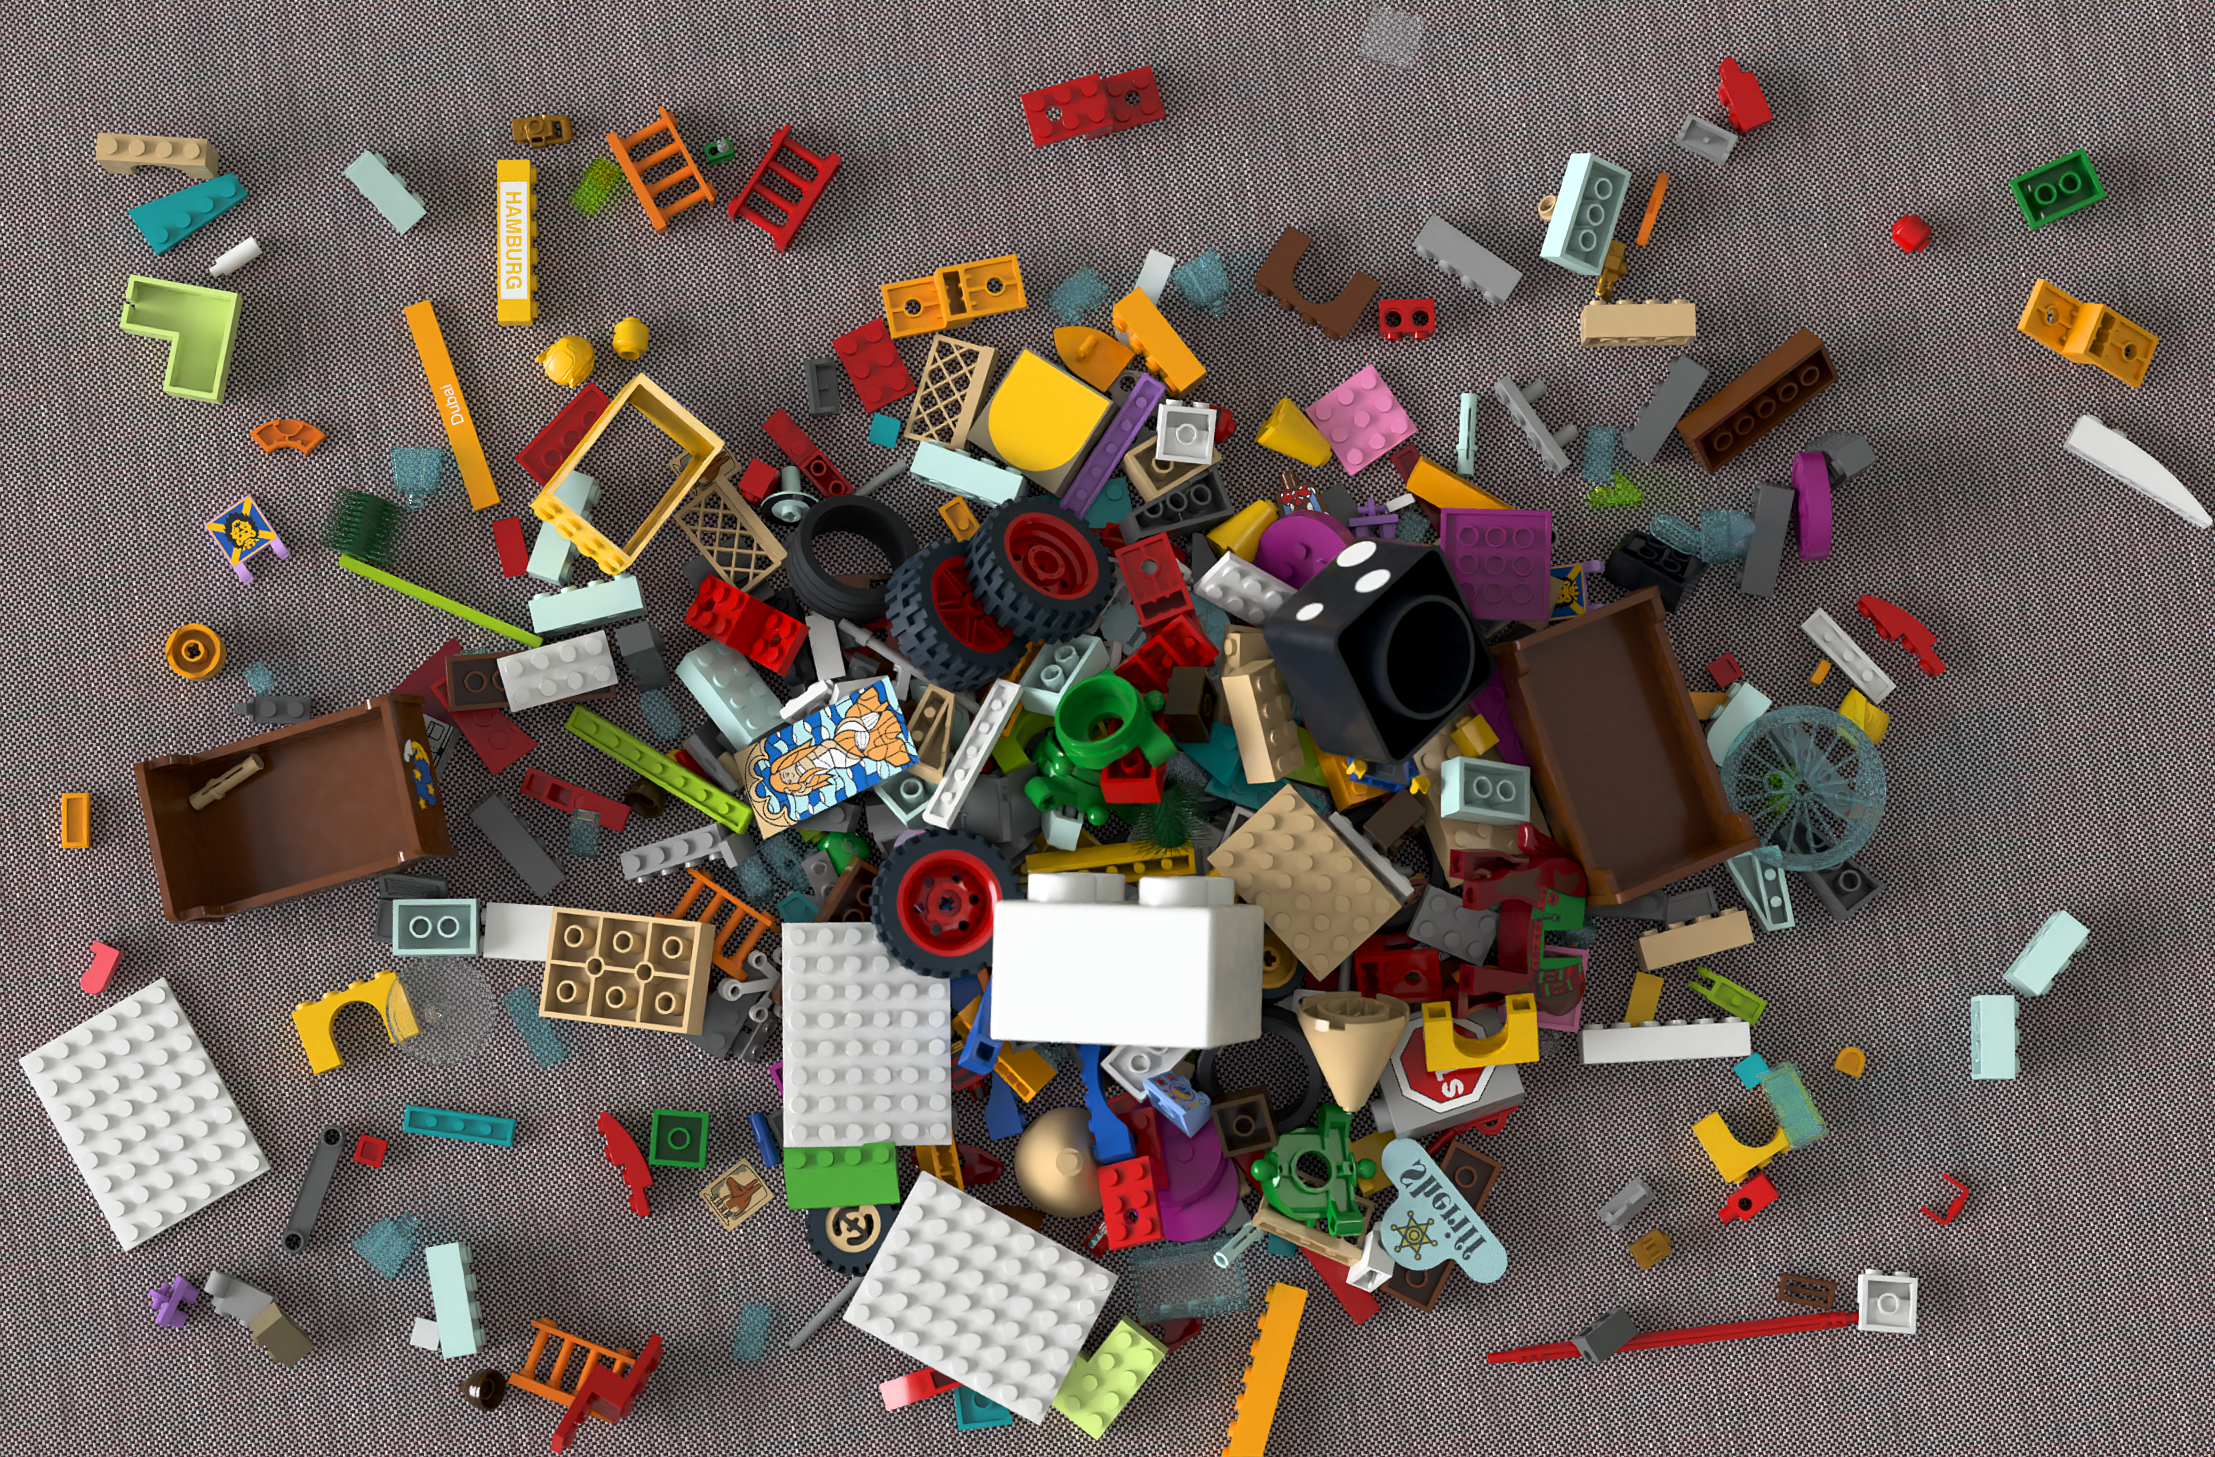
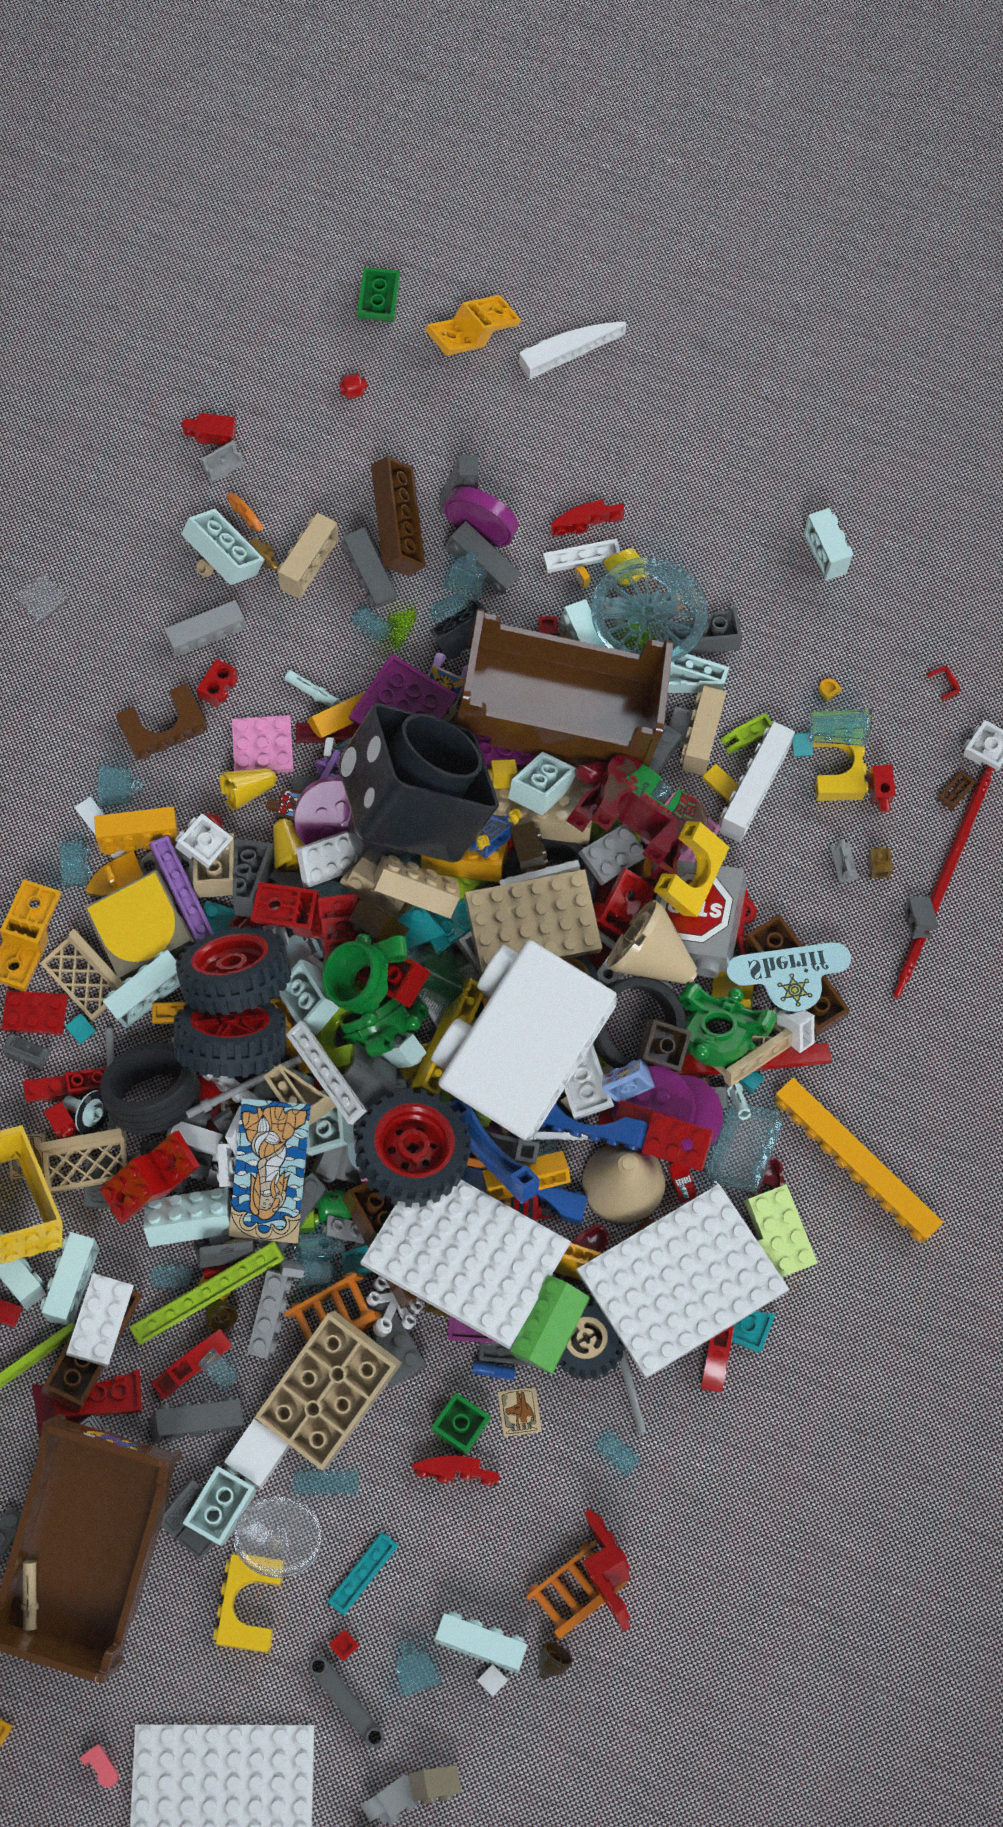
camera: 60 degrees left, 15 degrees down
(643, 653) = (125, 1257): dark grey wedge -> none
(750, 1046) = (426, 1342): light grey hinge -> none
(1525, 417) = (321, 650): light grey plate -> none
(1994, 1037) = (861, 599): light aqua brick -> none

